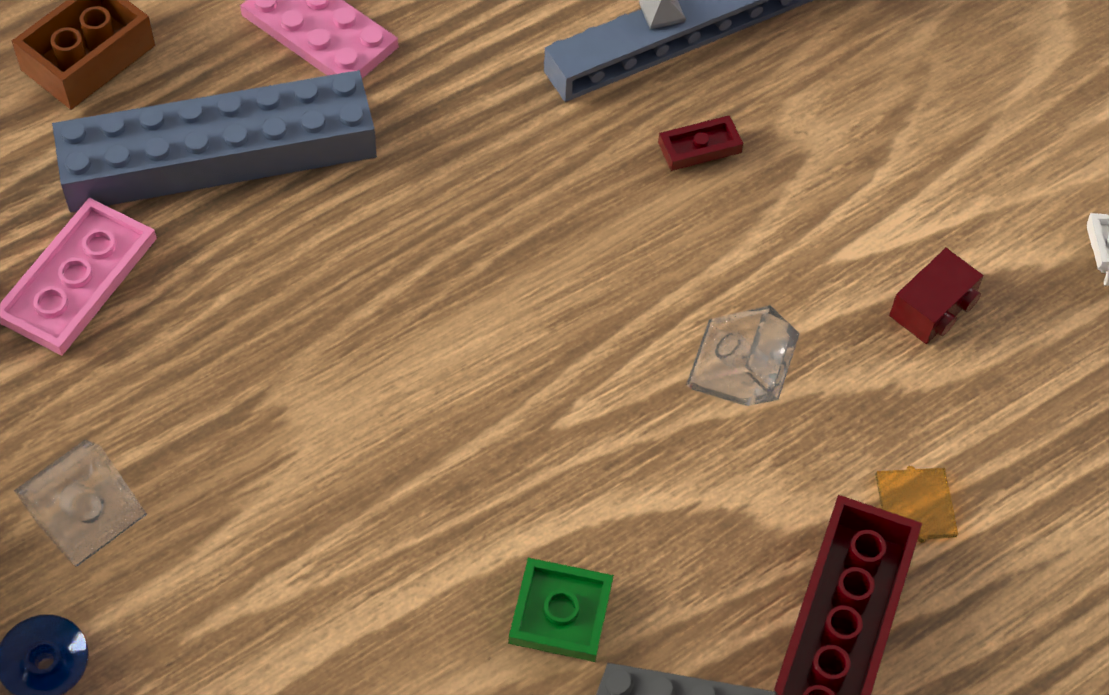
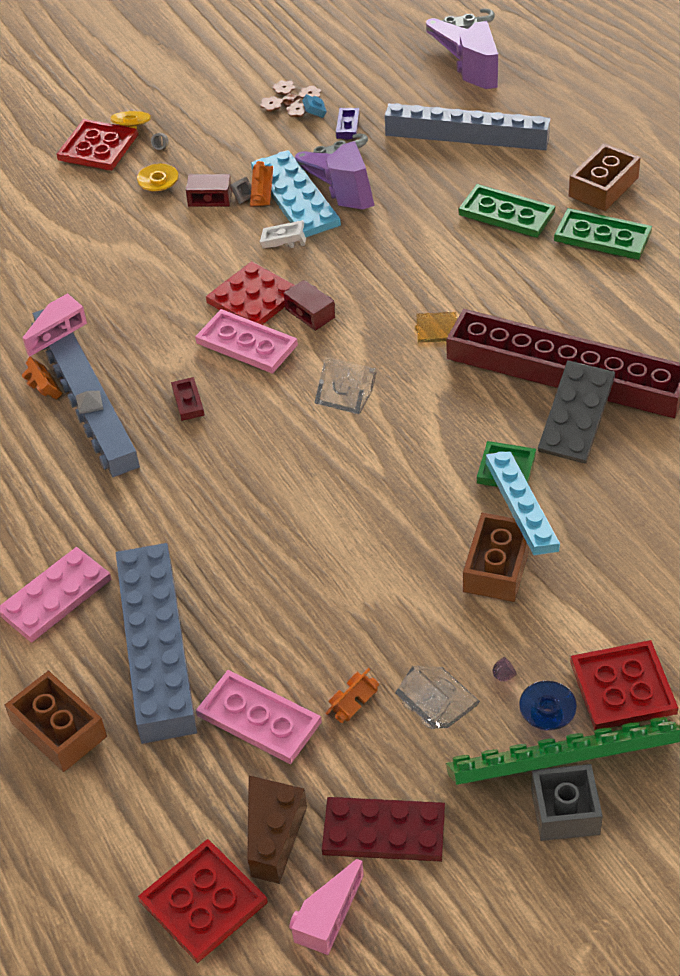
camera: 80 degrees left, 10 degrees down
(111, 398) = (344, 703): none -> orange hinge
(125, 599) = (503, 670): none -> hinge
(339, 584) = (495, 558): none -> dark orange brick
(434, 611) = (522, 503): none -> medium azure plate
(839, 212) = (246, 341): none -> bright pink plate
(961, 211) = (251, 294): none -> plate

